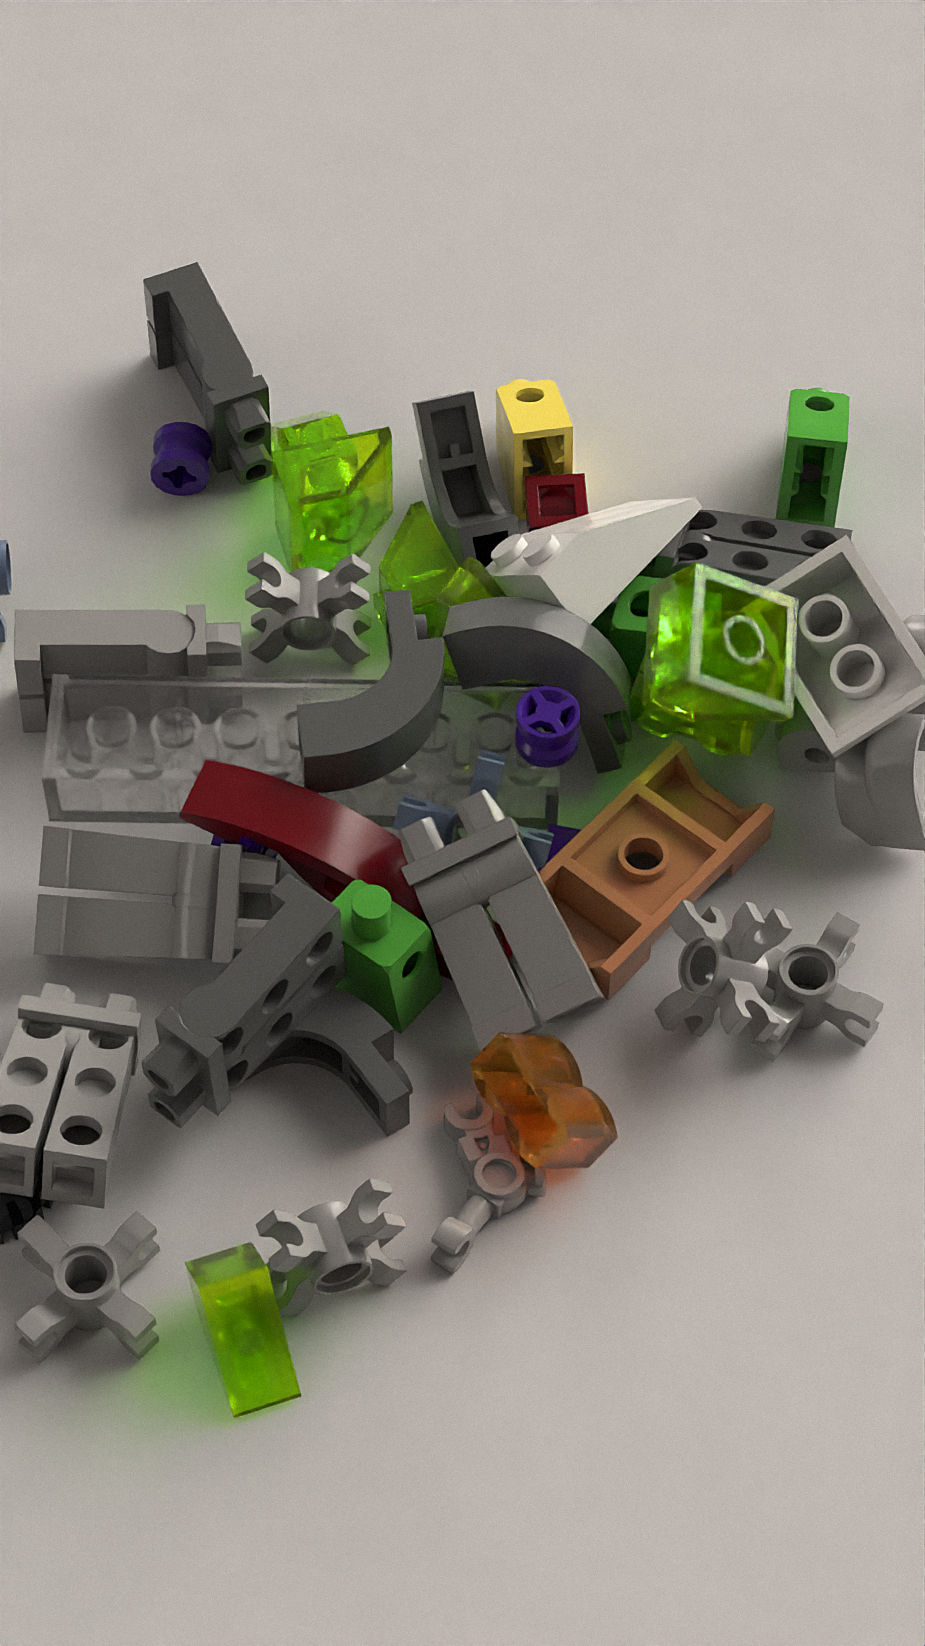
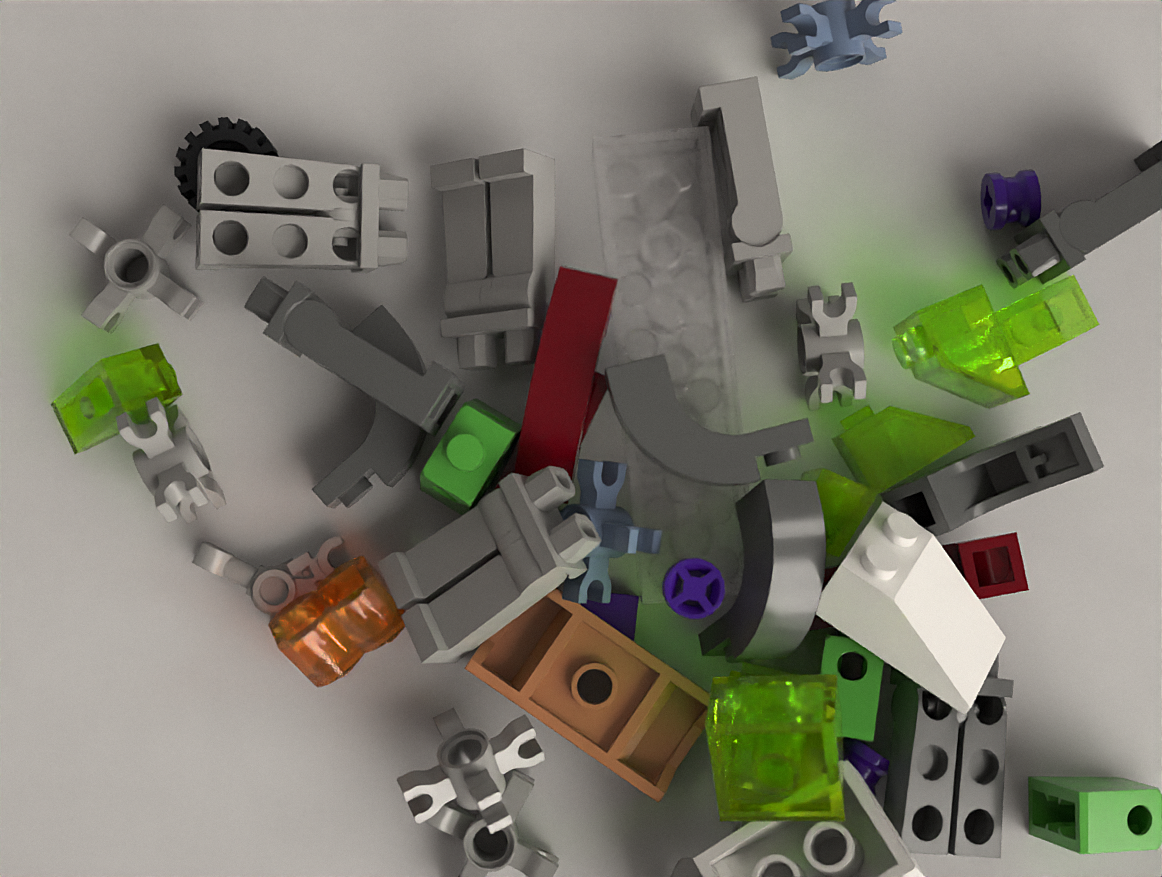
camera: 80 degrees right, 30 degrees up
(528, 423) = (1077, 533): light yellow torso -> none

